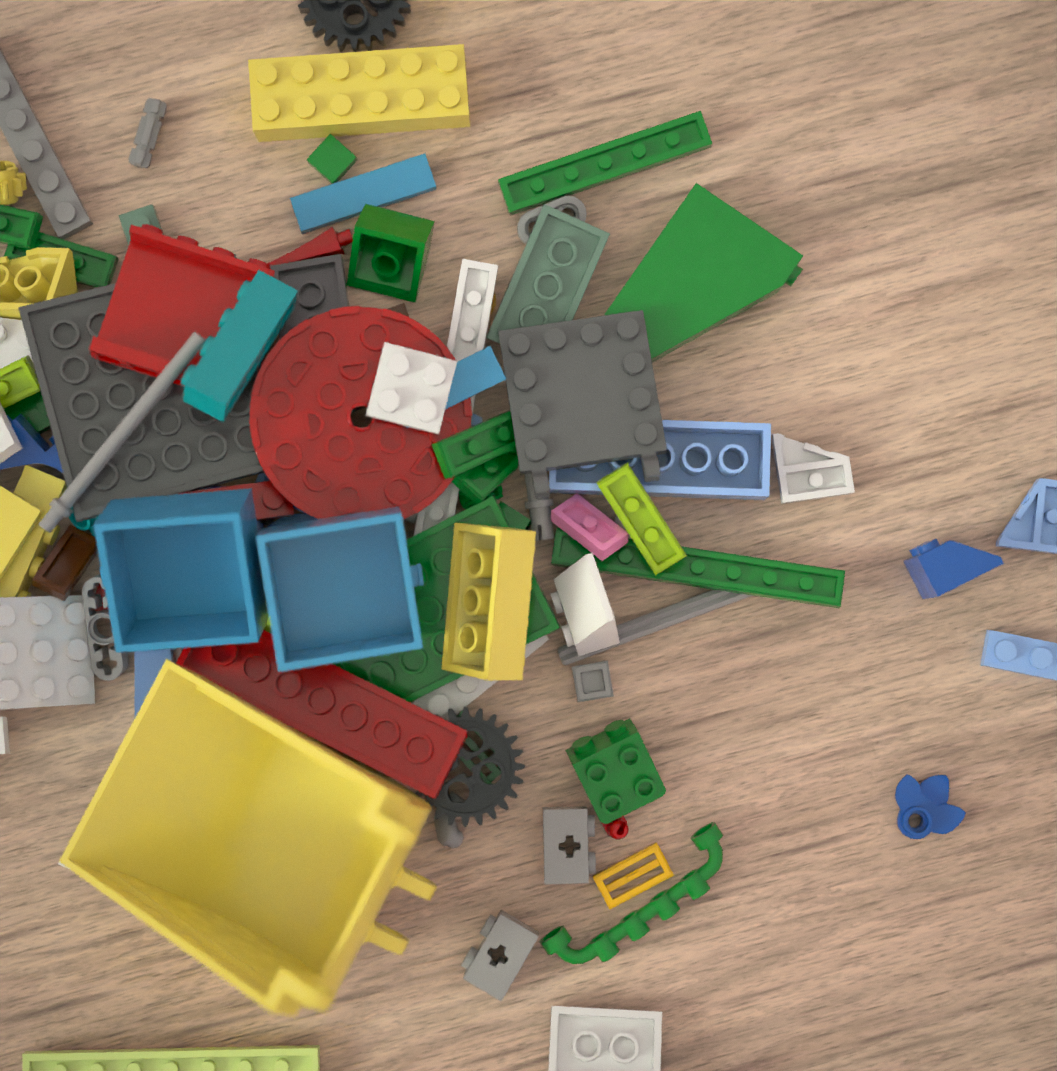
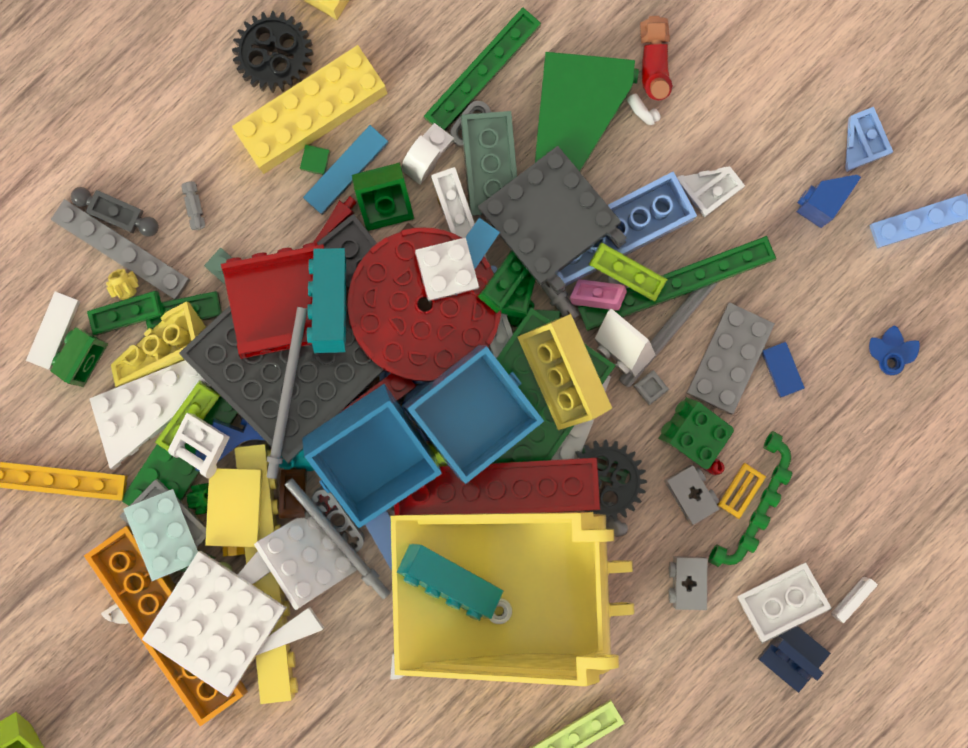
camera: 25 degrees left, 0 degrees up
(45, 86) = (114, 211): none -> dark grey plate
(105, 719) = (369, 575): none -> light grey bar
(195, 783) = (449, 581): none -> teal brick
(235, 865) = (500, 619): none -> white plate
(472, 226) = (425, 152): none -> white brick
(713, 700) = (730, 358): none -> light grey plate
(772, 752) = (783, 369): none -> blue tile
(777, 325) = (641, 111): none -> white arm
(829, 272) = (655, 57): none -> piece

